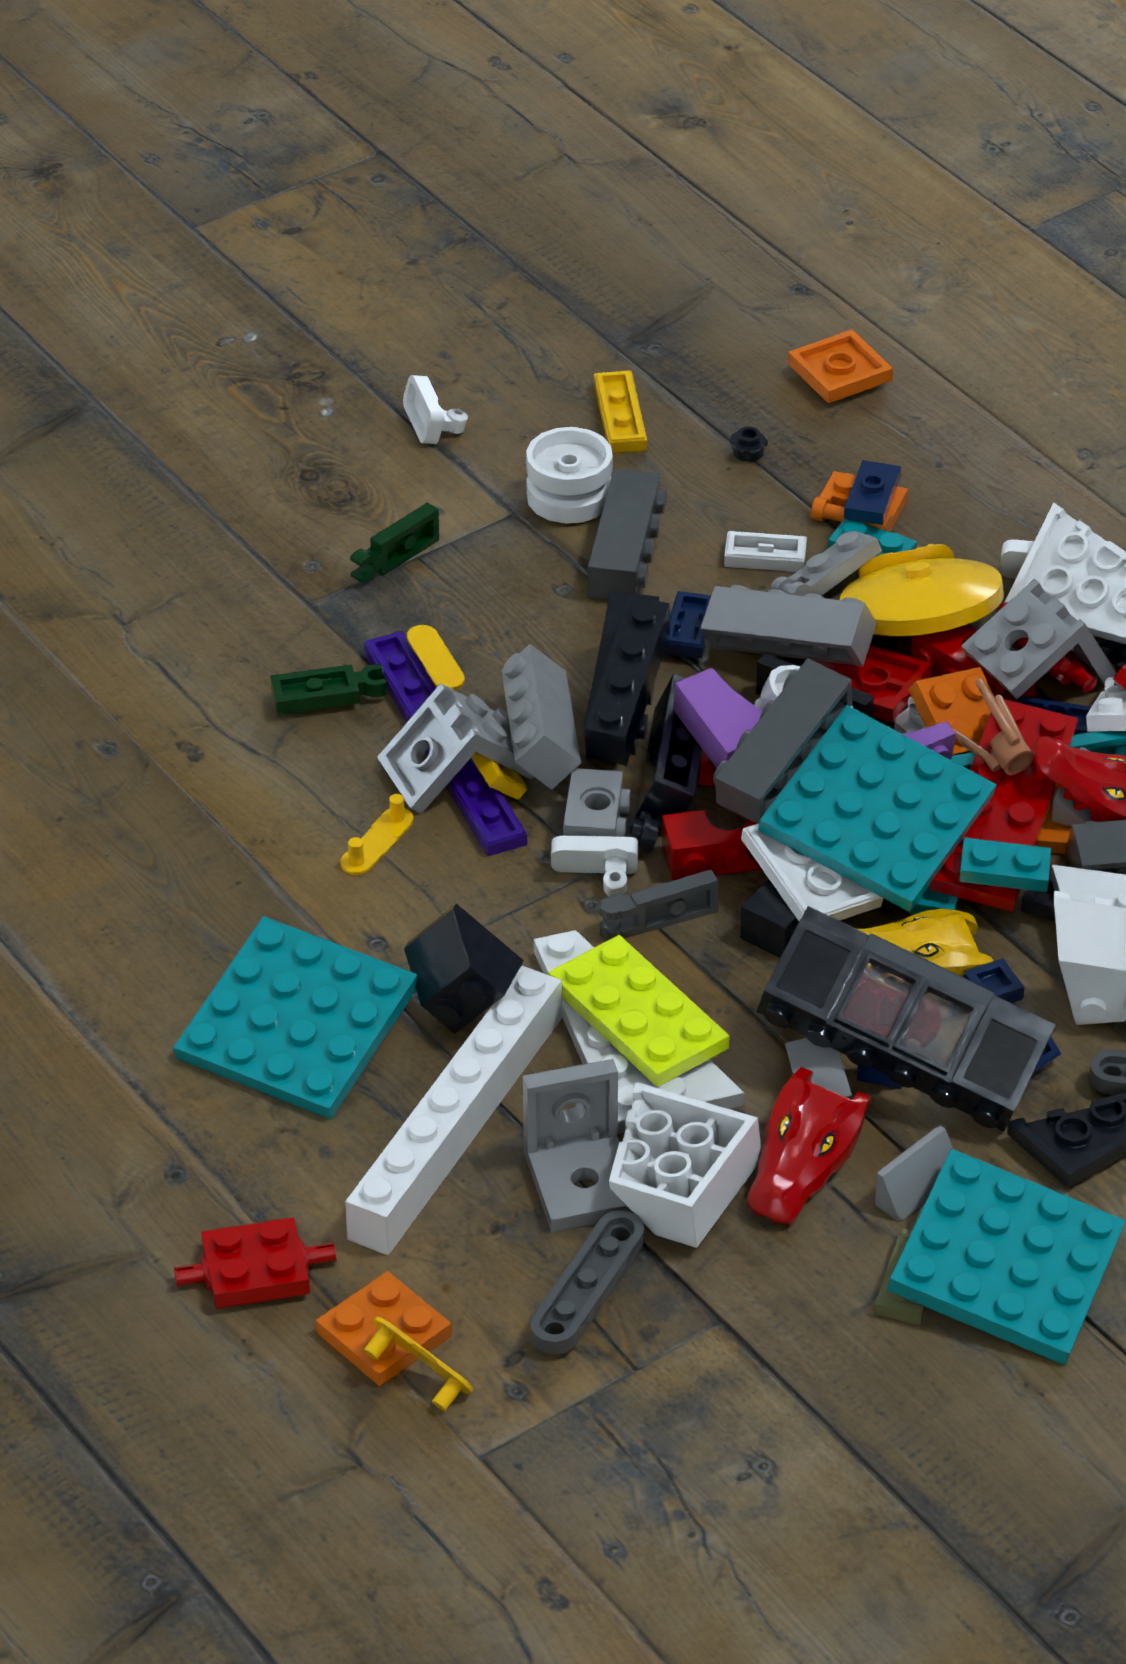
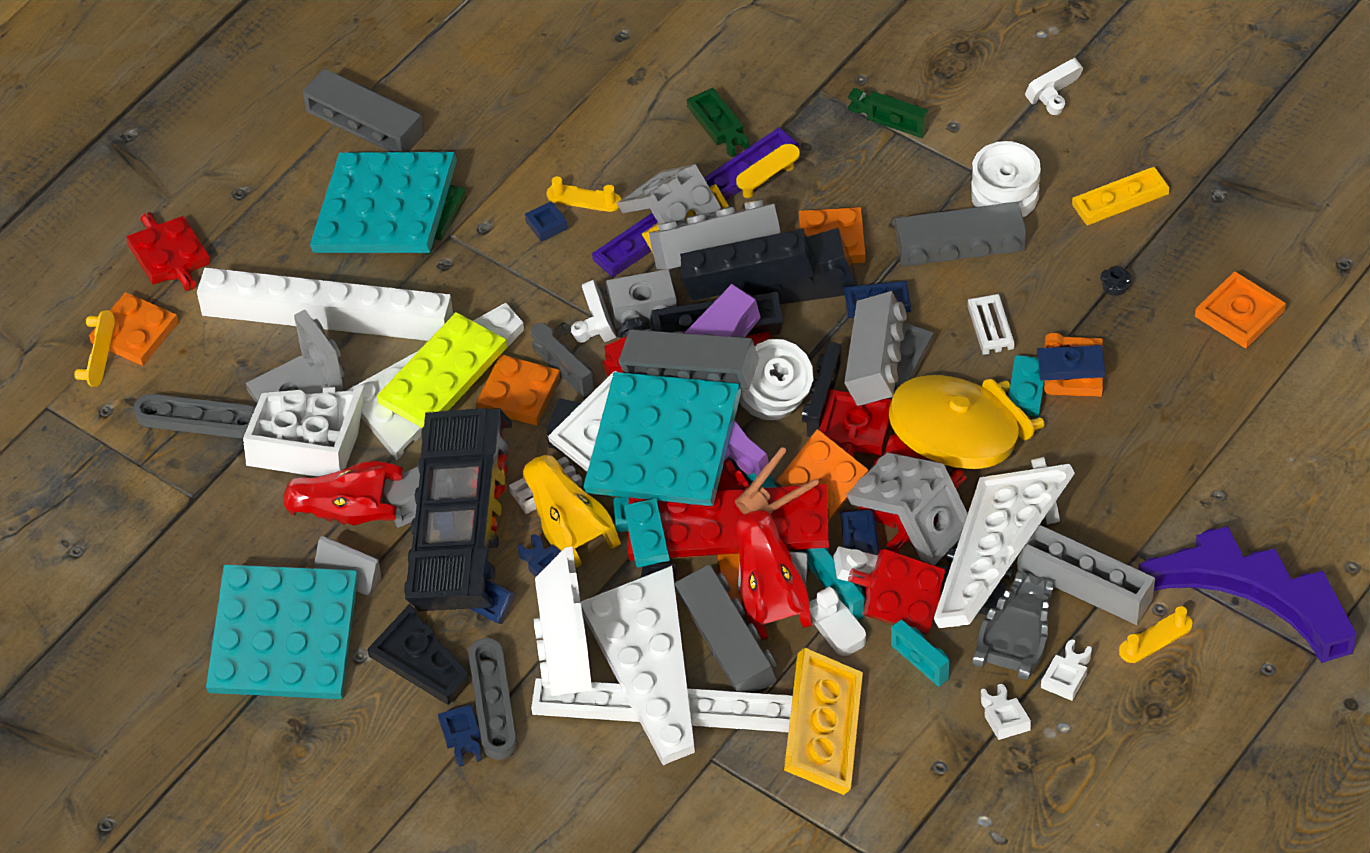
camera: 75 degrees right, 10 degrees up
(115, 1007) = (363, 112): none -> dark grey brick
(411, 874) = (546, 221): none -> dark blue plate
(460, 968) = (428, 263): black slope -> none
(566, 638) = (846, 219): none -> orange plate
(690, 957) = (519, 389): none -> orange plate
(831, 566) = (970, 360): light grey plate -> none

